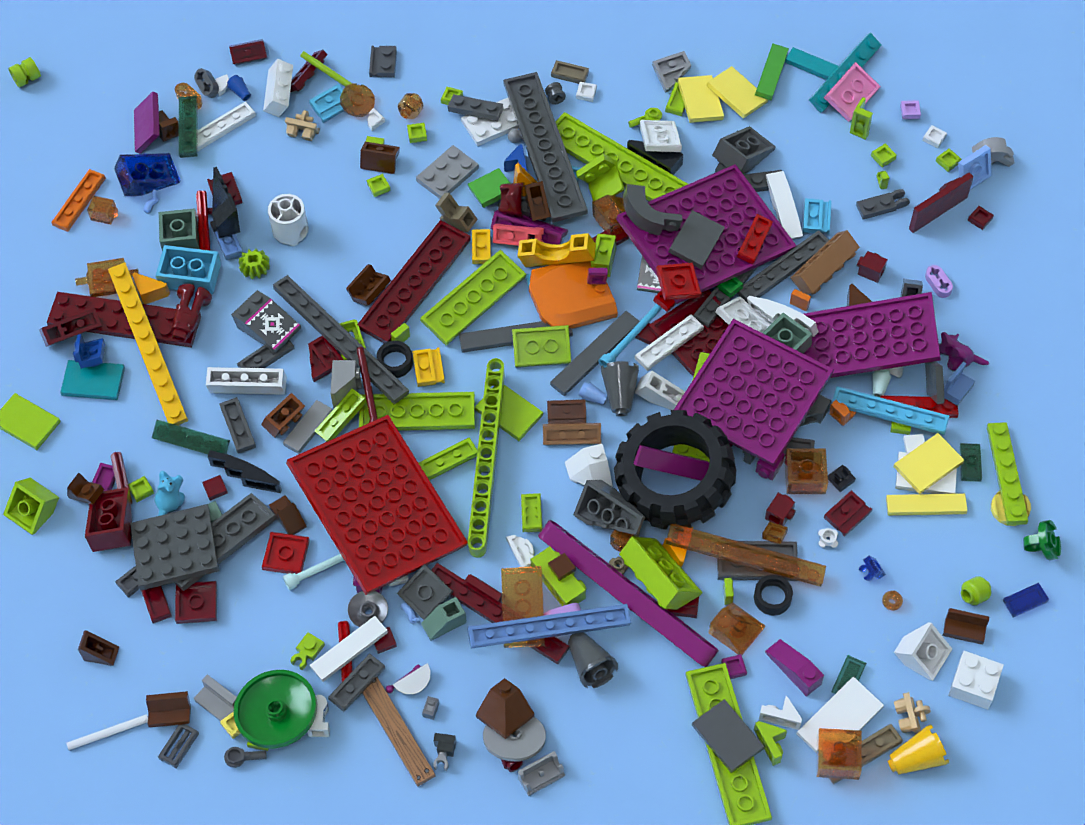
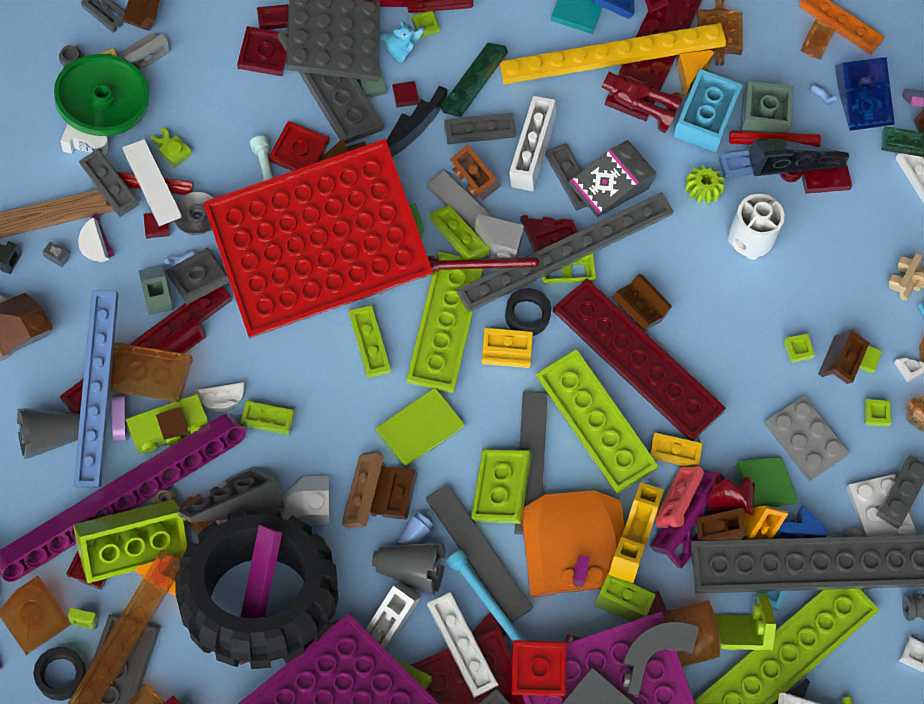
camera: 95 degrees right, 5 degrees up
(401, 333) = (560, 324): lime tile -> none
(455, 215) = (730, 427): dark tan brick -> none
(486, 464) = (363, 389): lime beam -> none

